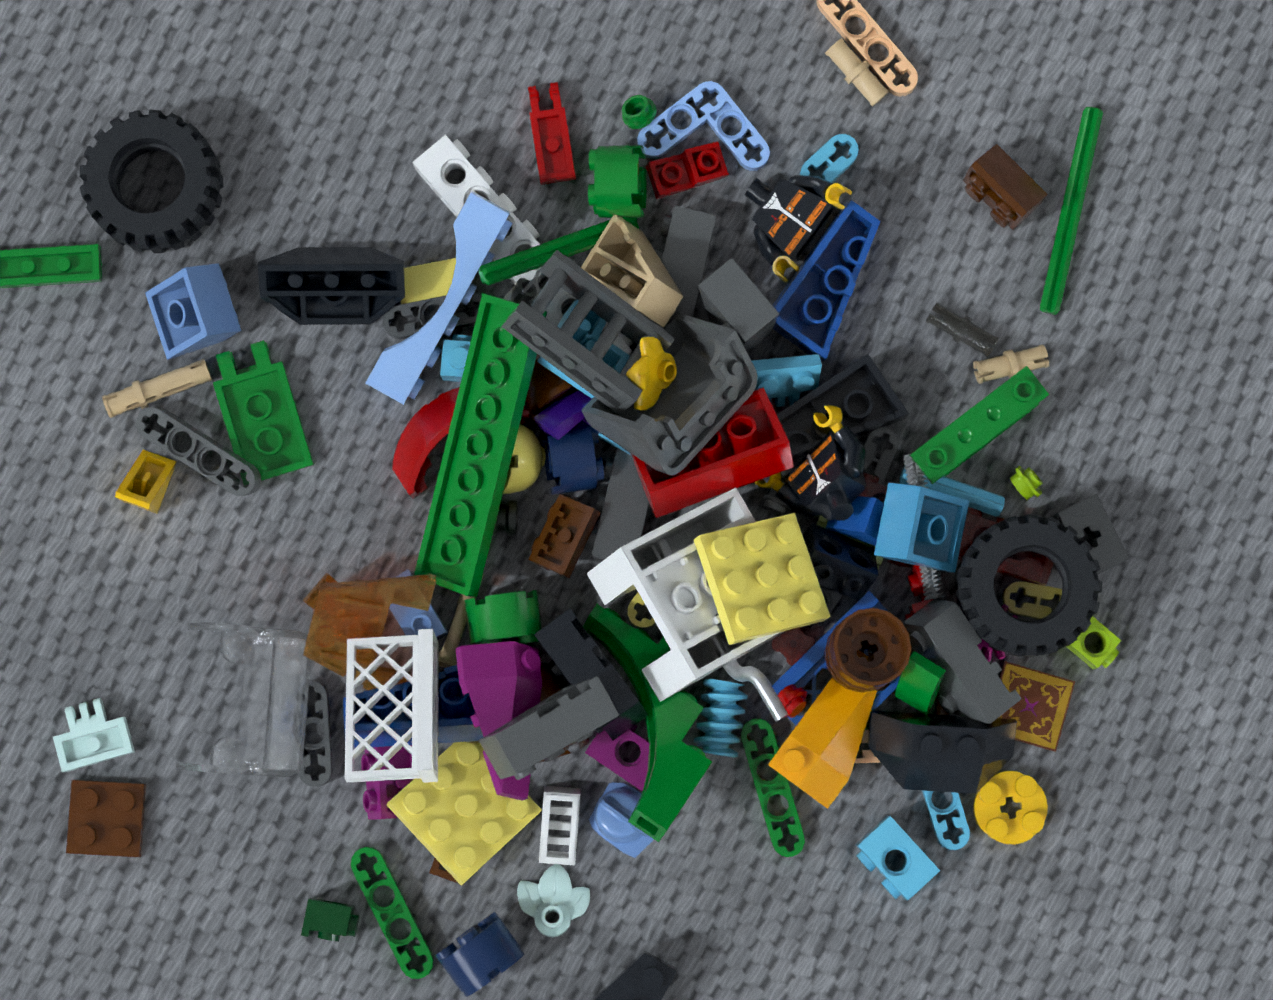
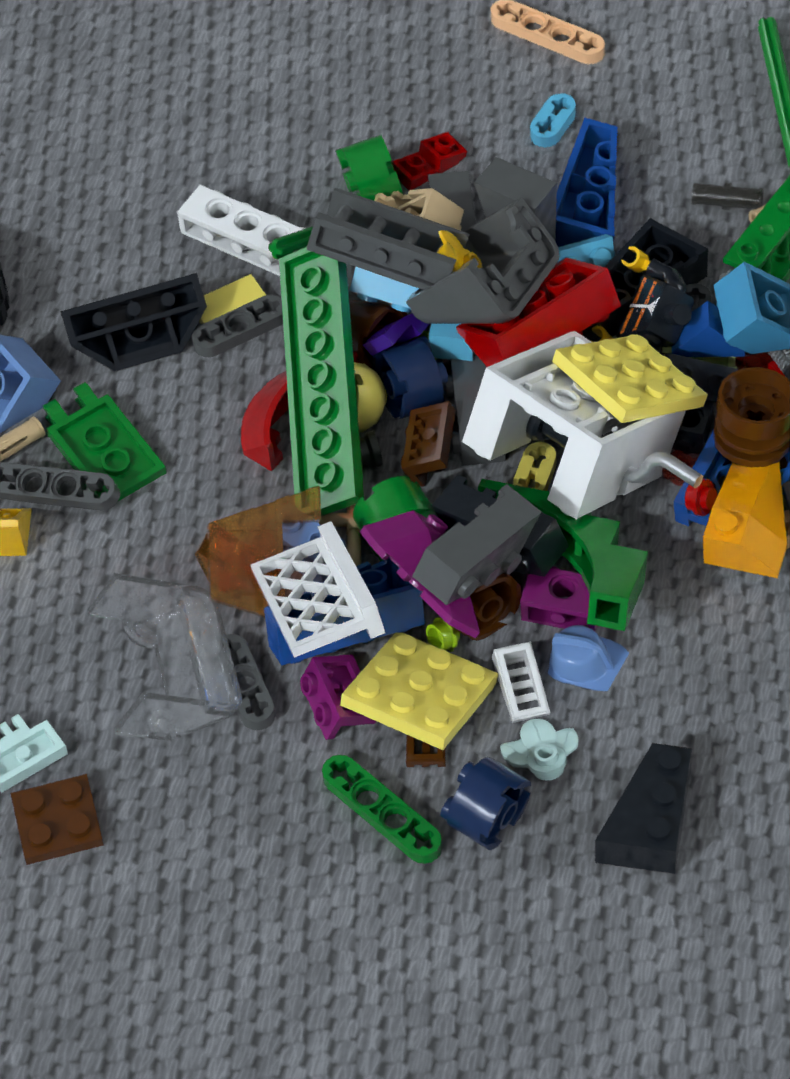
camera: 15 degrees left, 30 degrees down
(329, 919) = (319, 828): dark green brick -> none
(402, 363) = (223, 357): light blue arch -> none
(454, 357) = (271, 345): medium azure brick -> none
(551, 138) = (297, 171): red hinge -> none
(638, 112) = (367, 128): green plate -> none
(714, 117) = (436, 118): light blue beam -> none
(720, 717) = (643, 532): medium azure piece -> none
(766, 789) = (720, 586): green beam -> none
(791, 216) = (541, 145): torso -> none
(857, 72) = (549, 53): tan pin -> none
(1003, 187) = (714, 87): reddish brown slope -> none

